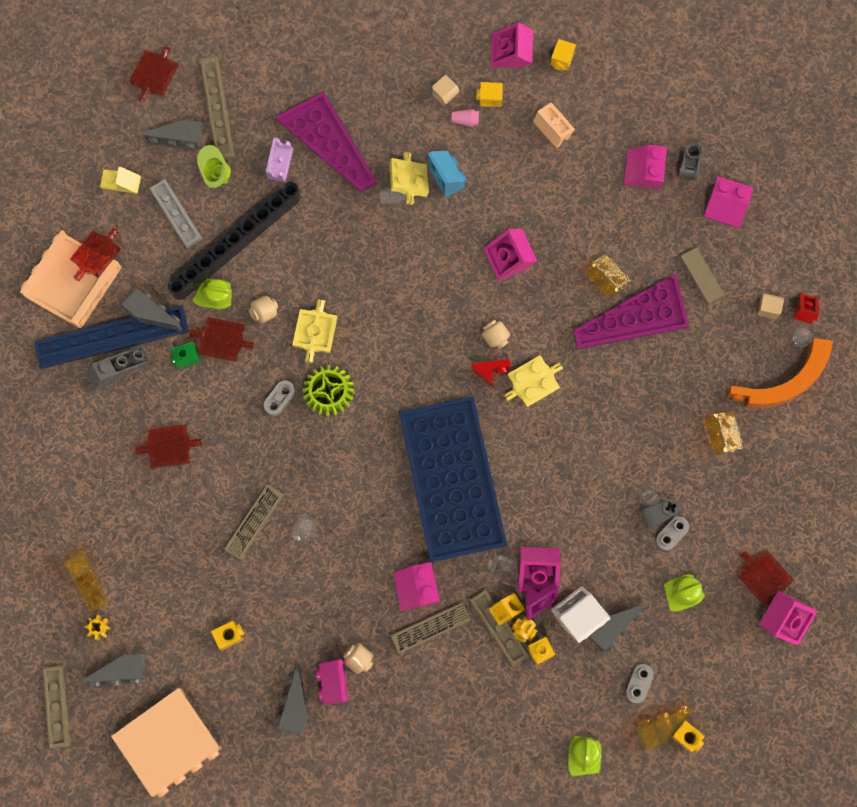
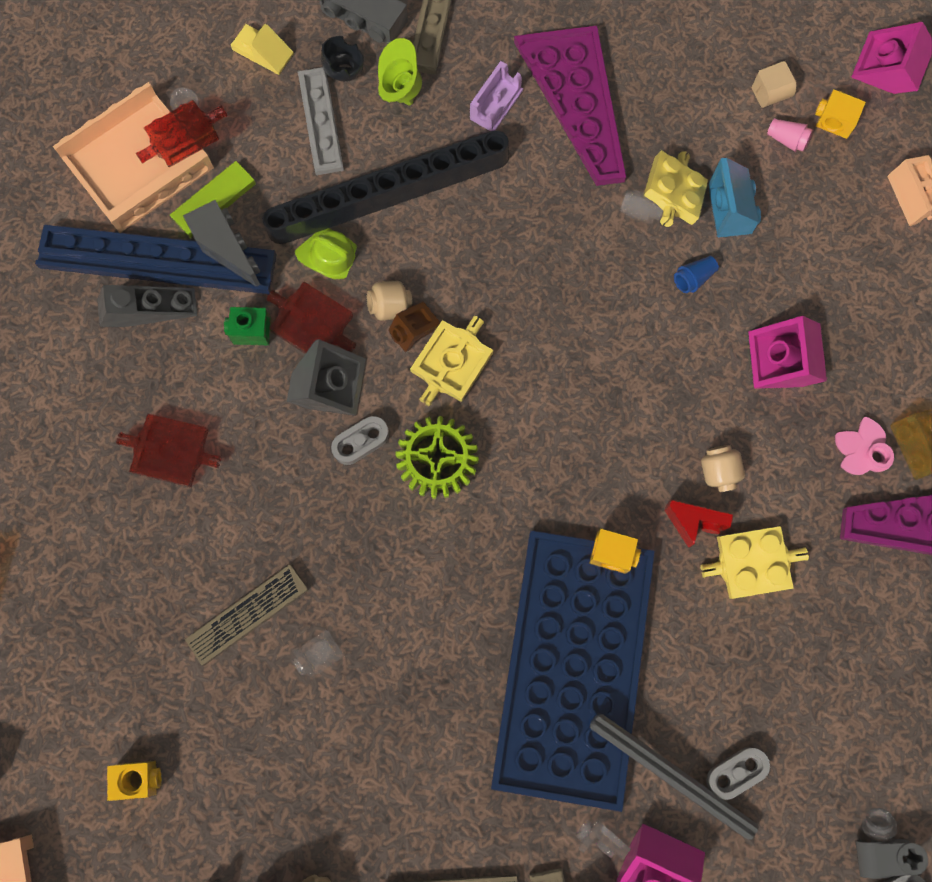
camera: 20 degrees right, 0 degrees up
(84, 231) = (182, 96): none -> clear plate
(133, 280) = (224, 189): none -> lime tile
(170, 166) = (338, 52): none -> black hair
(246, 370) = (327, 380): none -> dark grey slope
(283, 319) = (413, 325): none -> reddish brown bracket
(416, 587) = (453, 822): dark pink slope -> none
(439, 226) = (695, 274): none -> blue cone
(450, 404) = (615, 551): none -> yellow brick
(528, 515) = (674, 776): none -> dark grey axle
(563, 500) = (738, 776): none -> light grey plate
(571, 290) = (861, 445): none -> bright pink plate

